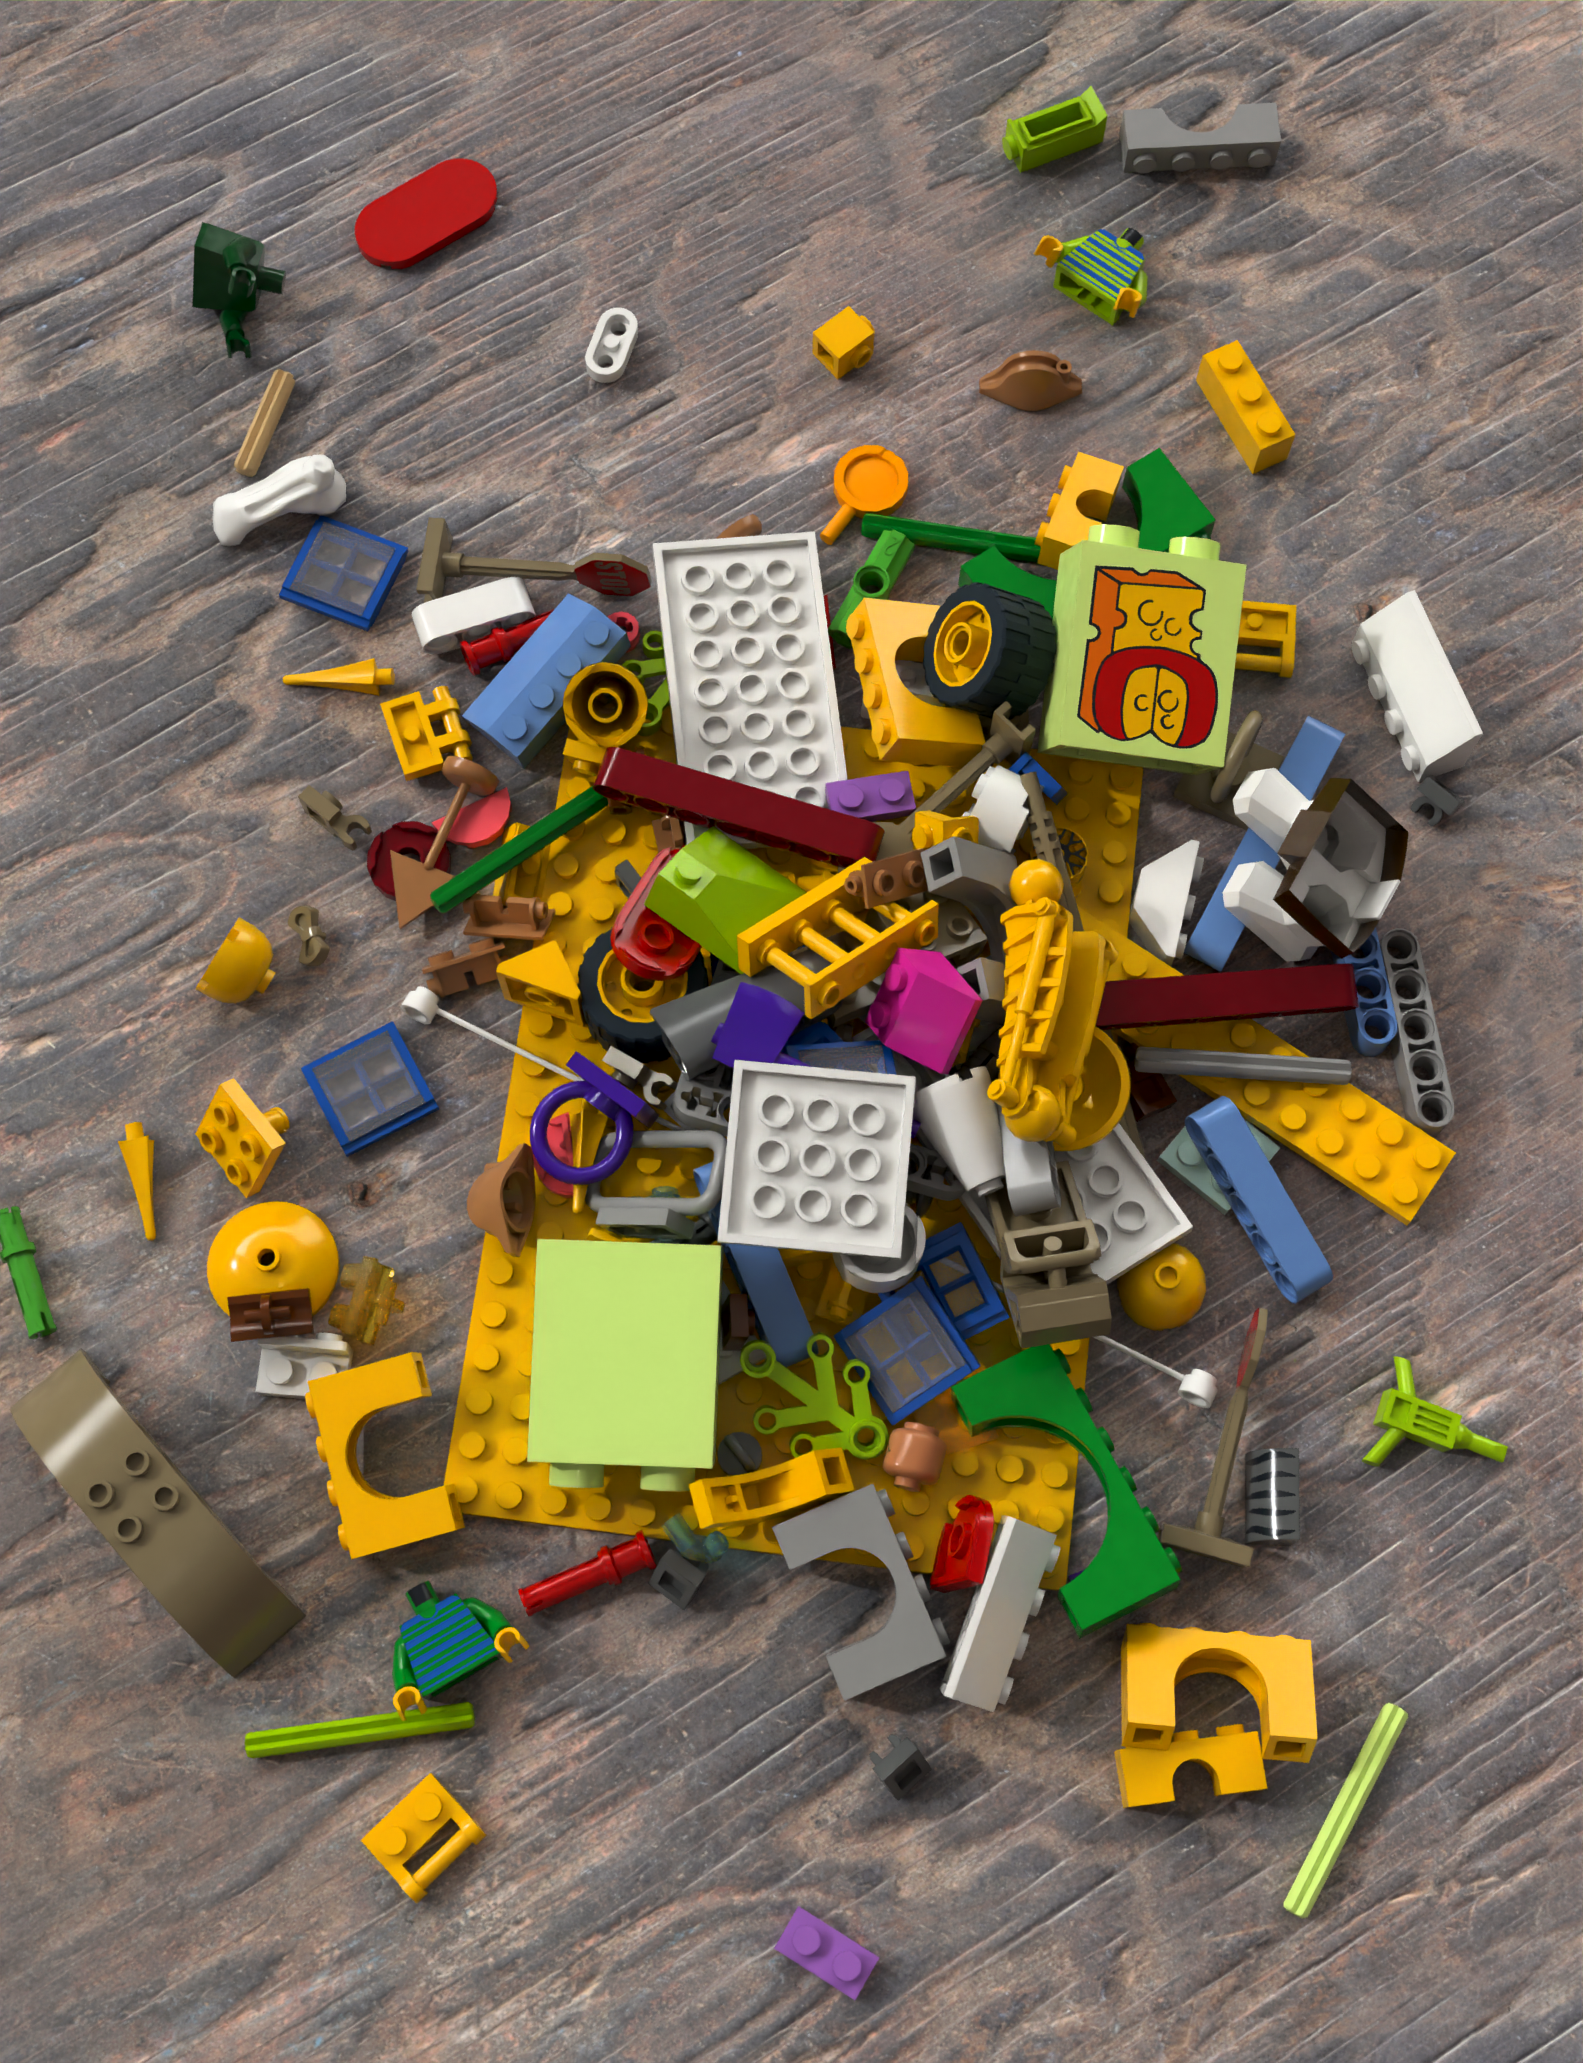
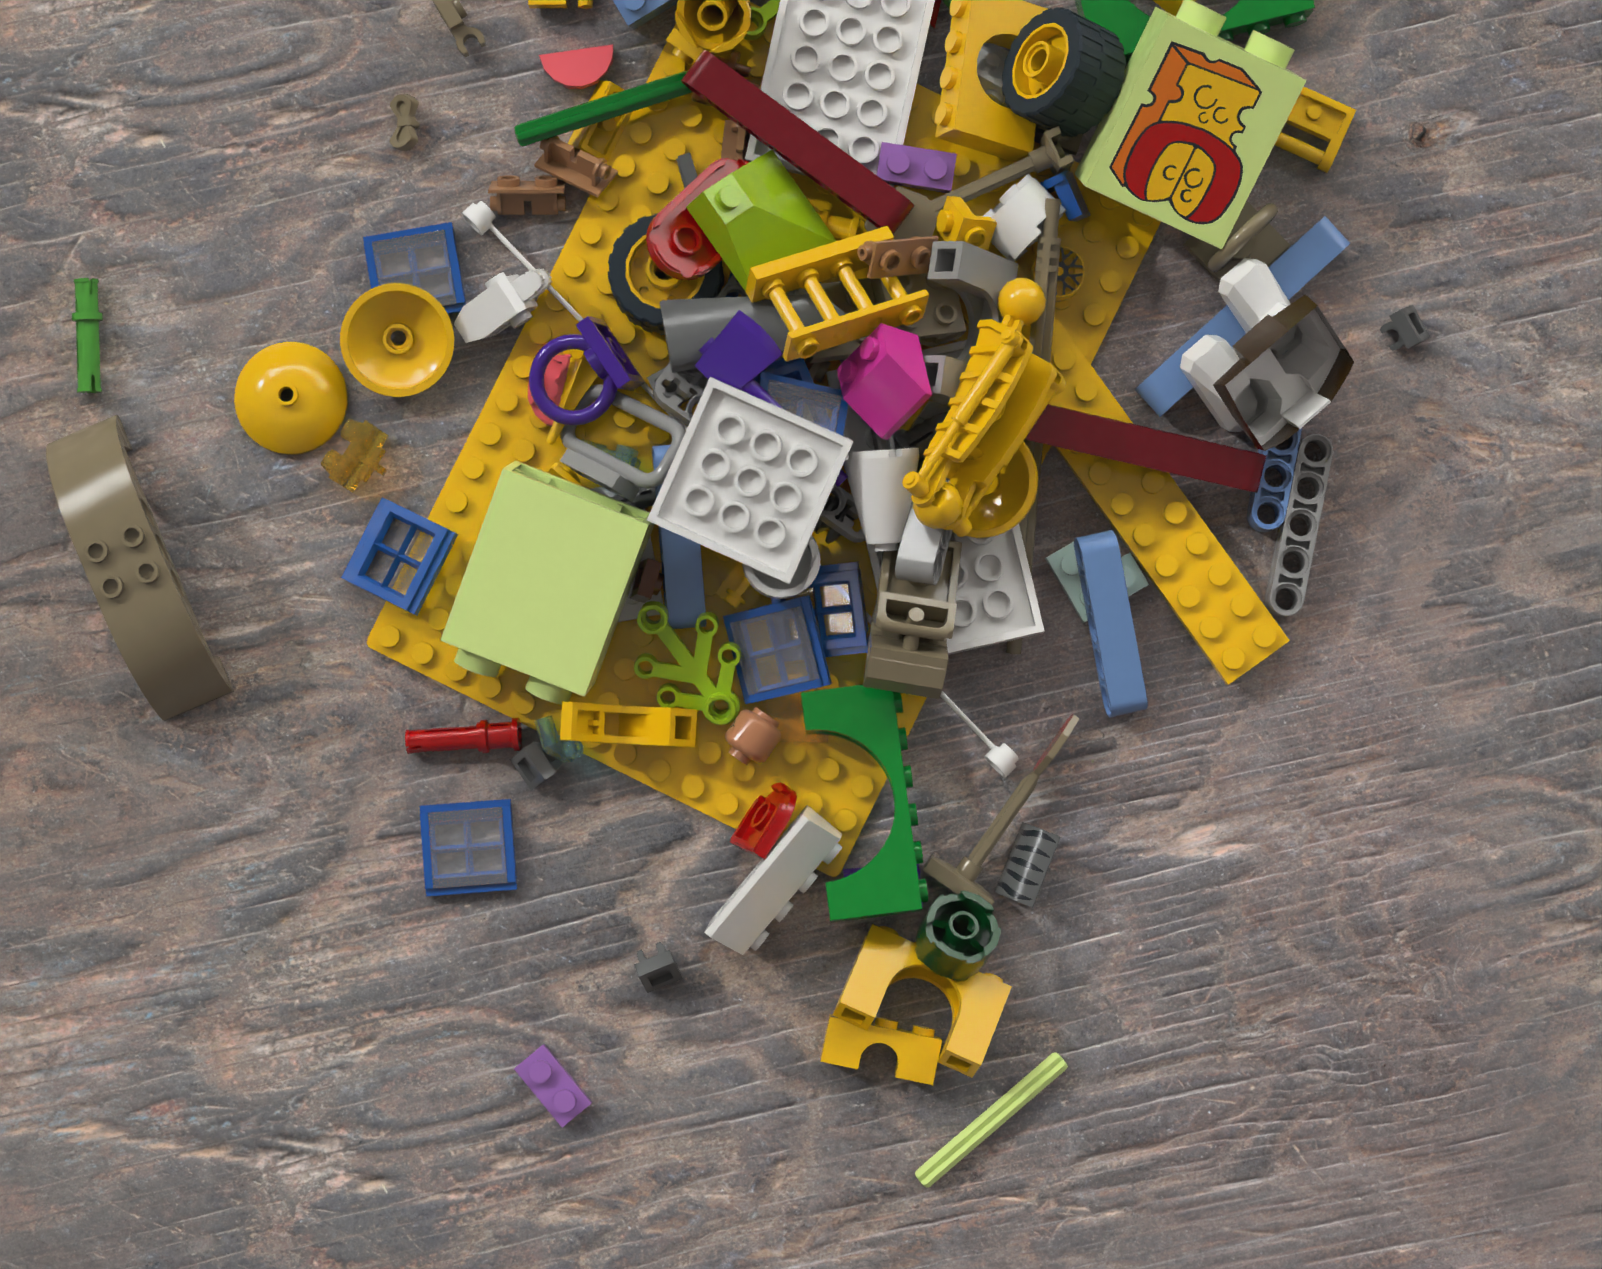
camera: 15 degrees right, 15 degrees up
(138, 1157) = (206, 274): yellow piece -> none
(239, 965) = (336, 131): yellow cylinder -> none
(242, 1137) = (296, 284): yellow plate -> none
(270, 1315) = (275, 445): reddish brown hips -> none
(293, 1361) = (291, 493): white bracket -> none
(342, 1409) = (306, 634): yellow arch -> none
(359, 1730) = (249, 795): lime axle -> none
(366, 1126) = (389, 366): none -> yellow dish
(404, 839) = (515, 104): dark red tile -> none
(412, 1826) = (267, 882): yellow plate -> none
(417, 880) = (511, 106): medium nougat piece -> none
(446, 1645) = (335, 754): torso -> none
(464, 1397) = (399, 556): none -> blue piece
(475, 1085) = (502, 304): none -> white hinge
(505, 1199) = (494, 412): medium nougat hat -> none
(542, 982) = (585, 237): yellow slope -> none
(632, 1072) = (634, 340): dark tan plate -> none
(633, 1702) = (468, 847): none -> clear piece
(739, 1454) = (615, 685): dark grey tile -> none
(909, 1635) = (693, 776): light grey arch -> none
(1148, 1090) = (1056, 495): reddish brown plate -> none
(1164, 901) = (1135, 340): white slope -> none
(1164, 1289) = (1008, 669): yellow cylinder -> none
(1229, 1600) = (957, 935): none -> dark green brick
(1242, 1065) = (1140, 509): light grey axle -> none
(1416, 688) = (1425, 224): white slope -> none
(1423, 1422) = (1173, 847): lime piece -> none

